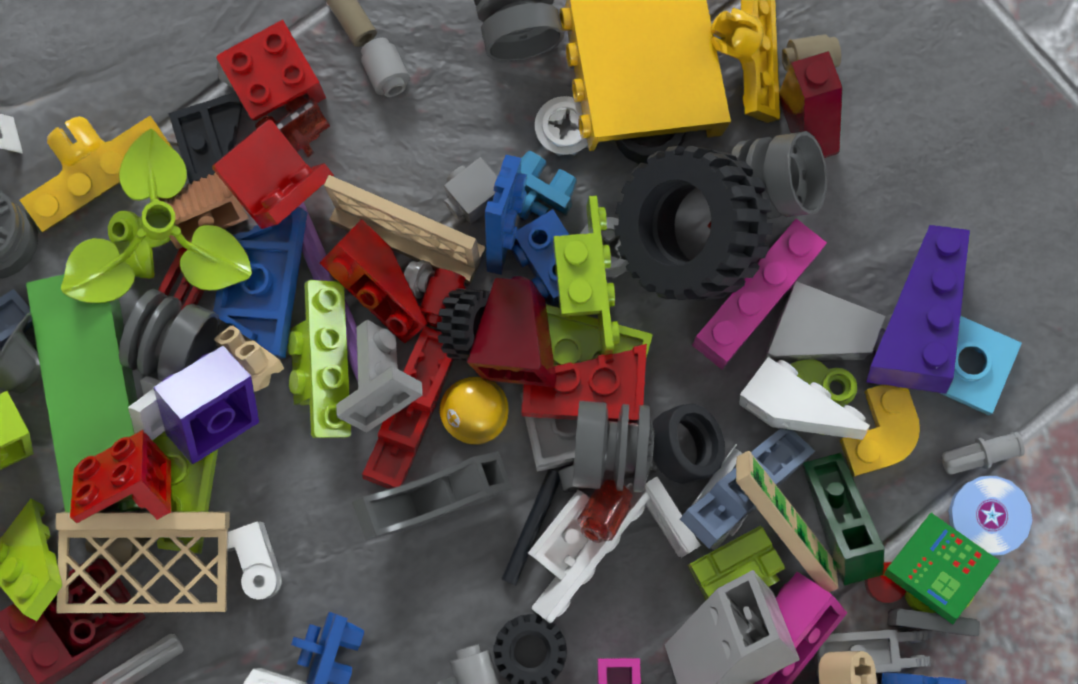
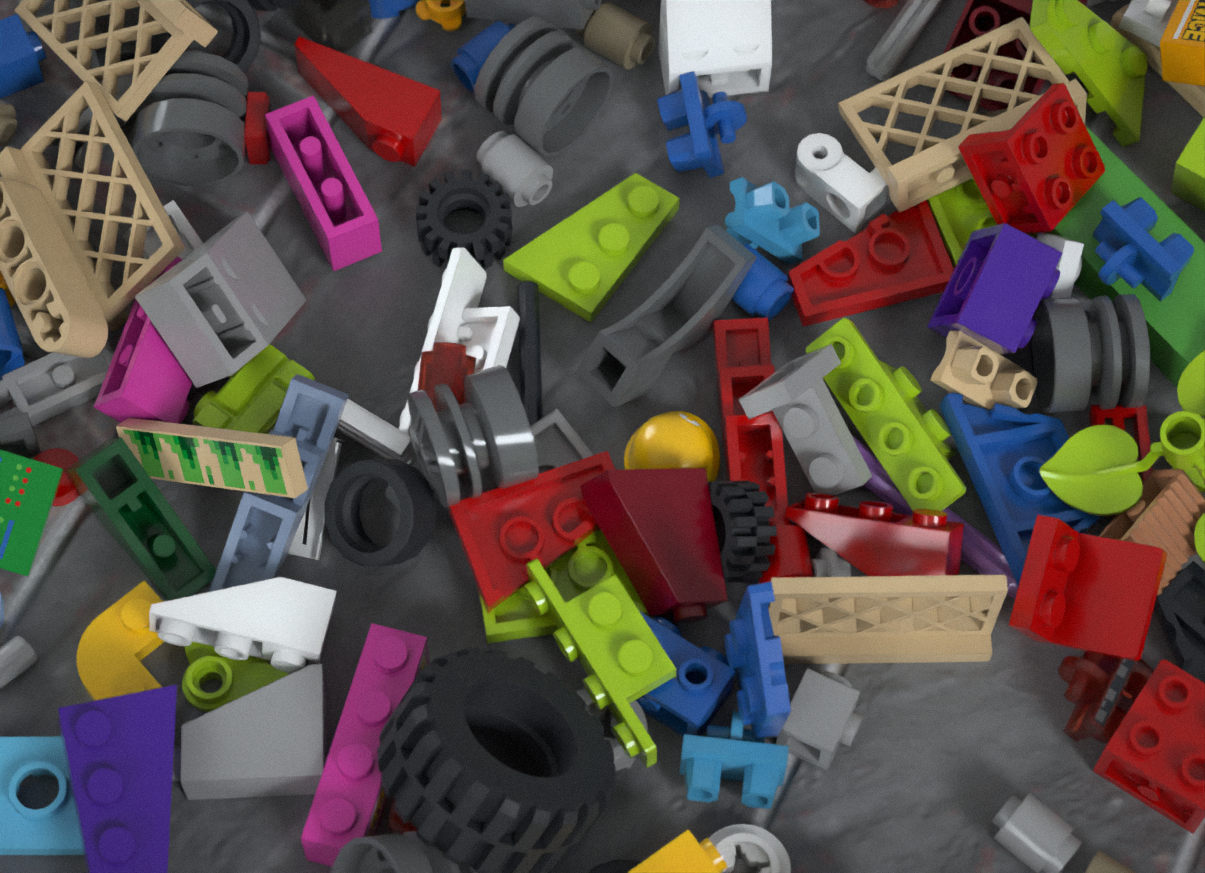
camera: 150 degrees right, 15 degrees down
(89, 372) = (1134, 253): none -> blue hips
(268, 482) = (881, 266): none -> red wing
(322, 543) = (767, 221): none -> dark azure hips
(344, 496) = (763, 289): none -> blue brick
(446, 592) = (596, 247): none -> lime wing

